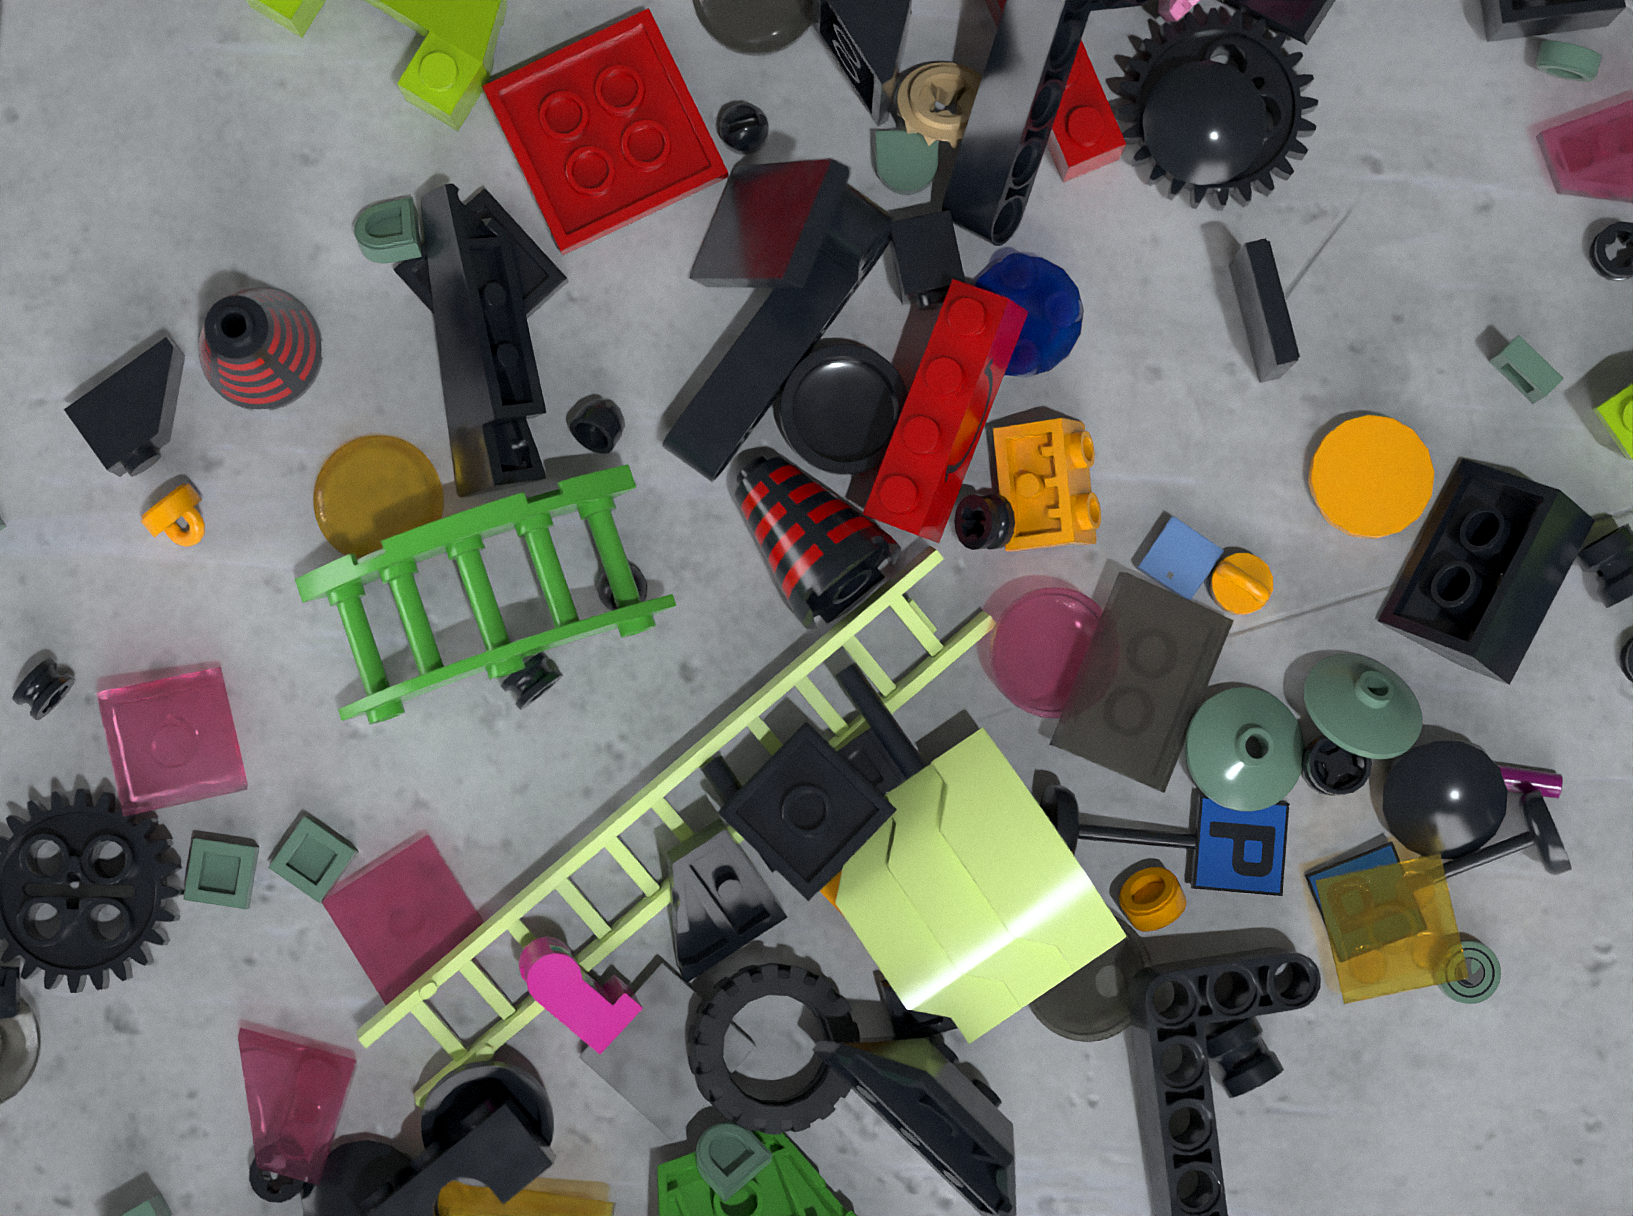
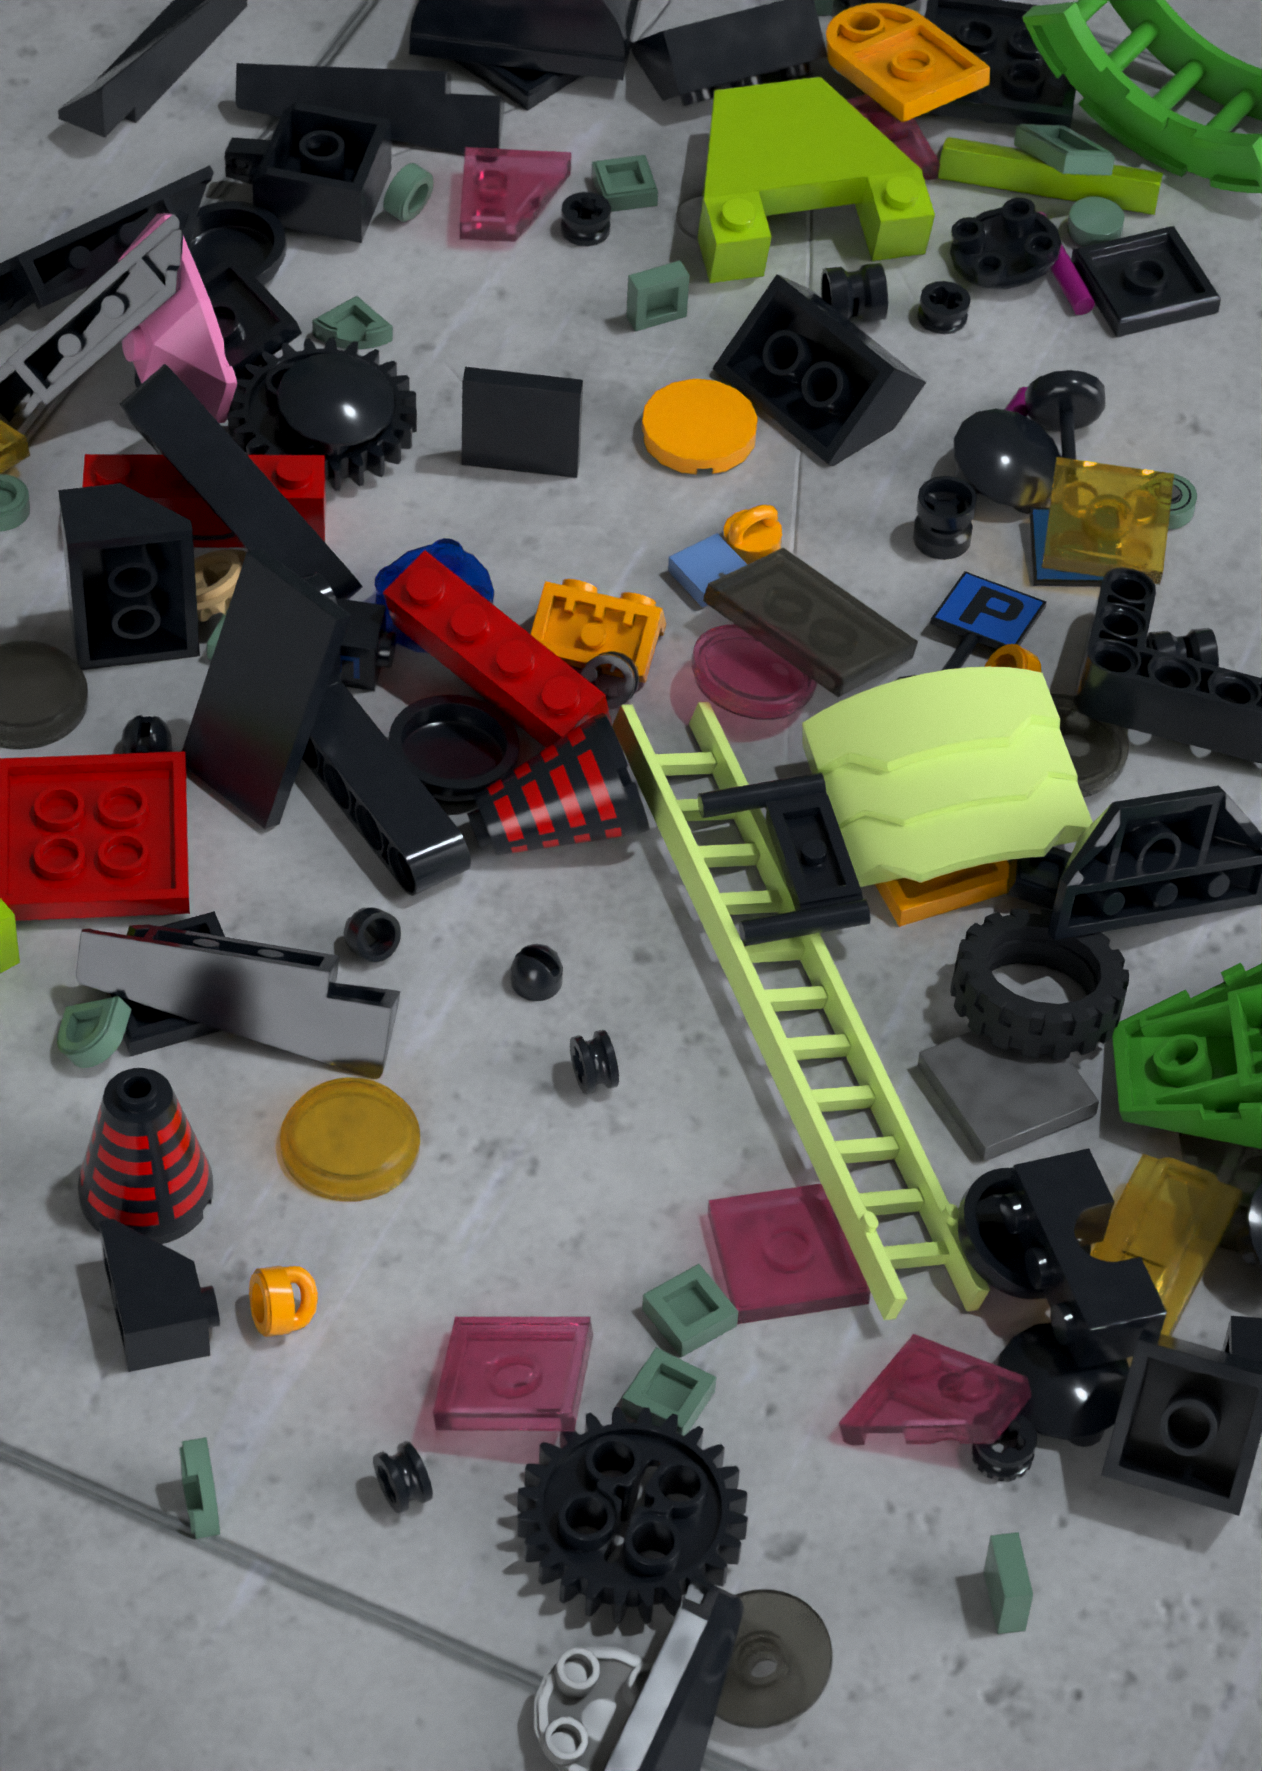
camera: 70 degrees left, 35 degrees down
(462, 539) = (436, 1025): bright green fence -> none
(573, 996) = (924, 1108): dark pink leg -> none
(716, 899) = (876, 978): black wing -> none
(730, 1157) = (1133, 1050): sand green tile -> none
(807, 811) = (824, 863): black tile -> none
(1219, 756) = (902, 579): sand green dish -> none
(1362, 706) = (899, 475): sand green dish -> none
(1364, 83) = (353, 322): none -> sand green tile

